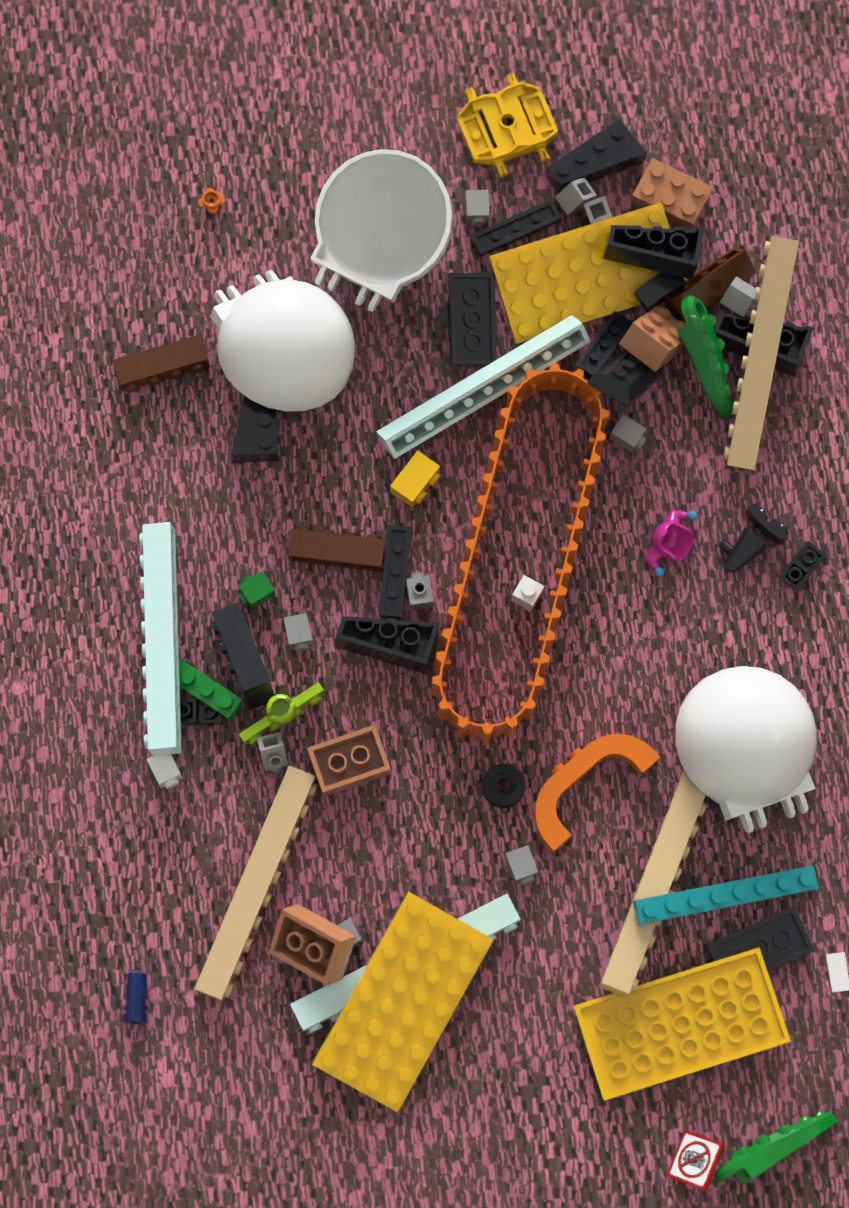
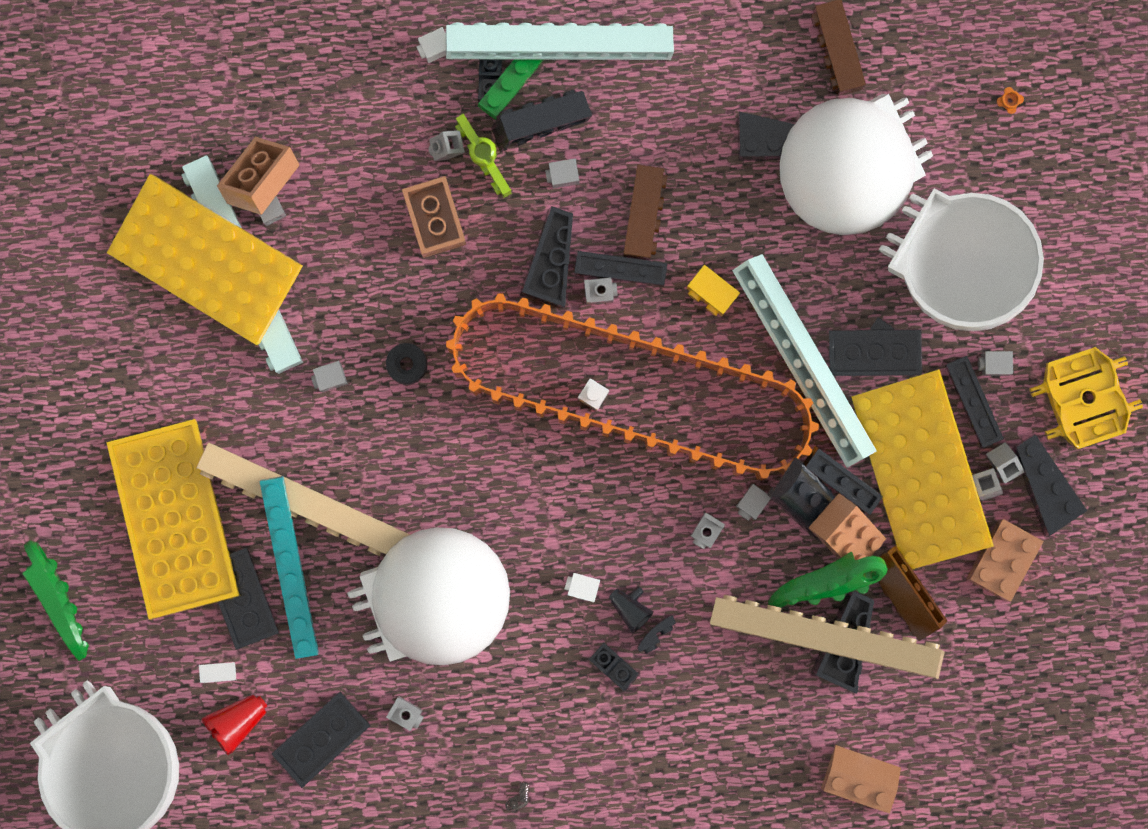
camera: 95 degrees right, 10 degrees up
(136, 999) = (221, 17): clear blue axle -> none
(255, 590) = (606, 133): green brick -> none
(256, 883) = (323, 128): tan brick -> none
(619, 746) = (371, 402): orange arch -> none
(652, 481) = (713, 524): none -> light grey brick
(655, 248) = (939, 537): black wedge -> none
(657, 289) = (902, 540): black slope -> none
(671, 540) = (643, 538): dark pink piece -> none
(695, 1160) = (47, 524): piece -> none
(724, 598) = (582, 587): none -> white brick
(739, 297) = (889, 619): light grey brick -> none

